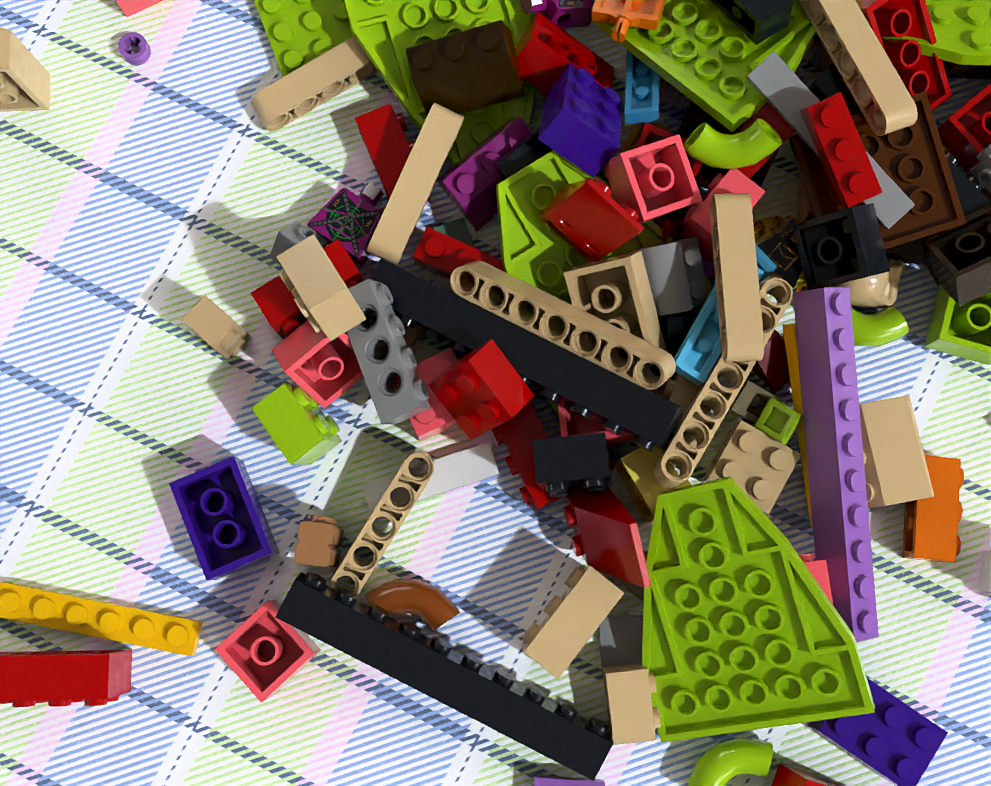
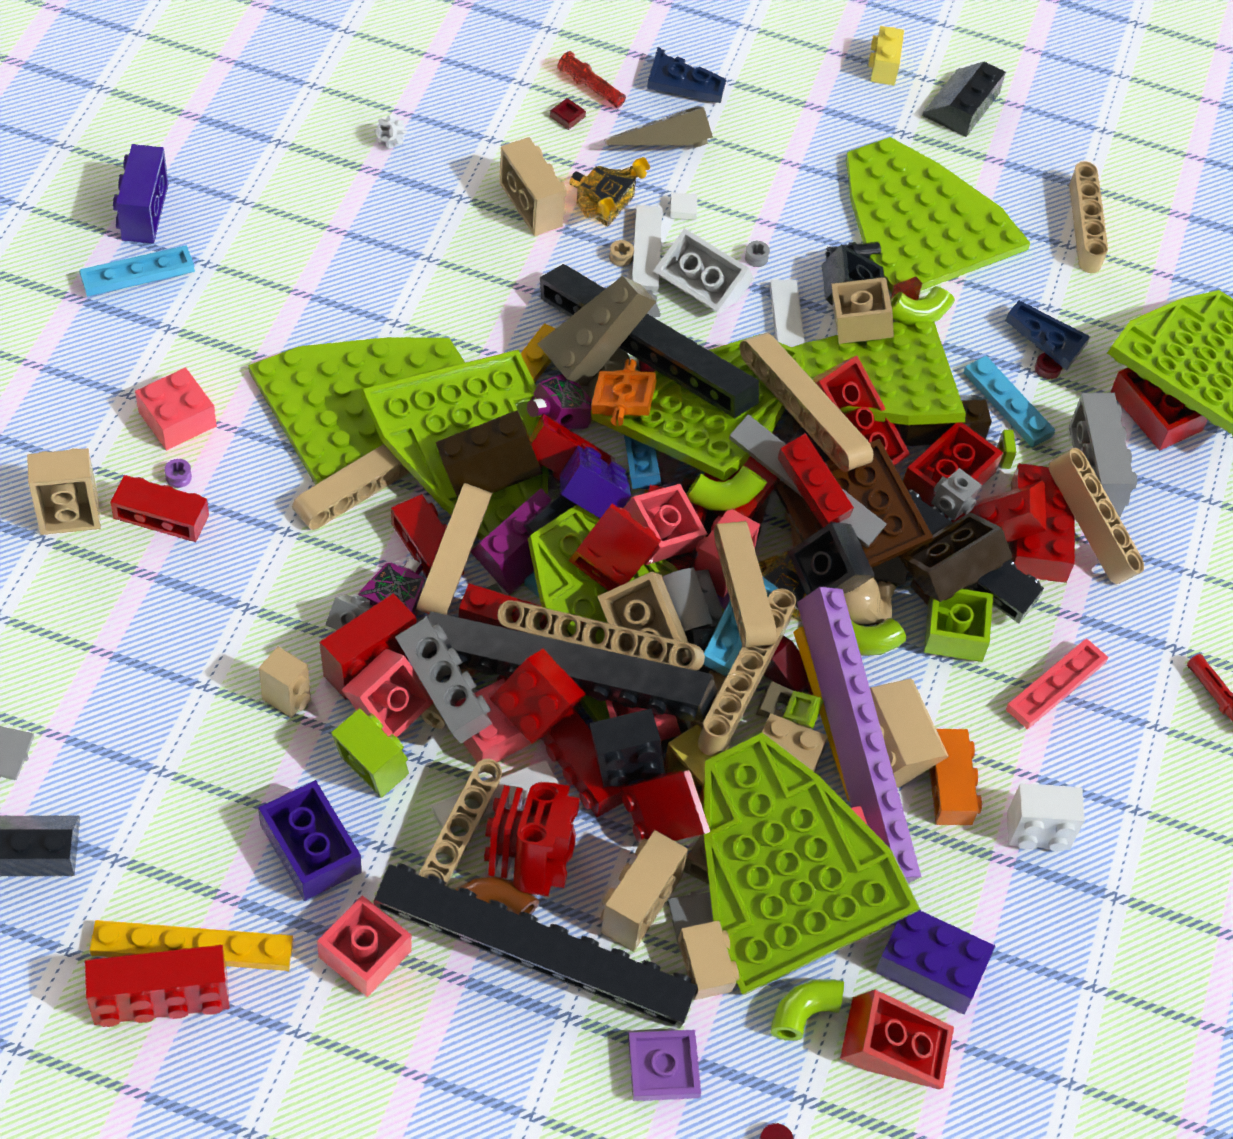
camera: 15 degrees left, 25 degrees down
(109, 92) = (160, 508): none -> red brick
(319, 289) = (390, 619): tan brick -> none
(319, 542) = (403, 841): medium nougat brick -> none
(459, 549) = (535, 836): none -> red piece

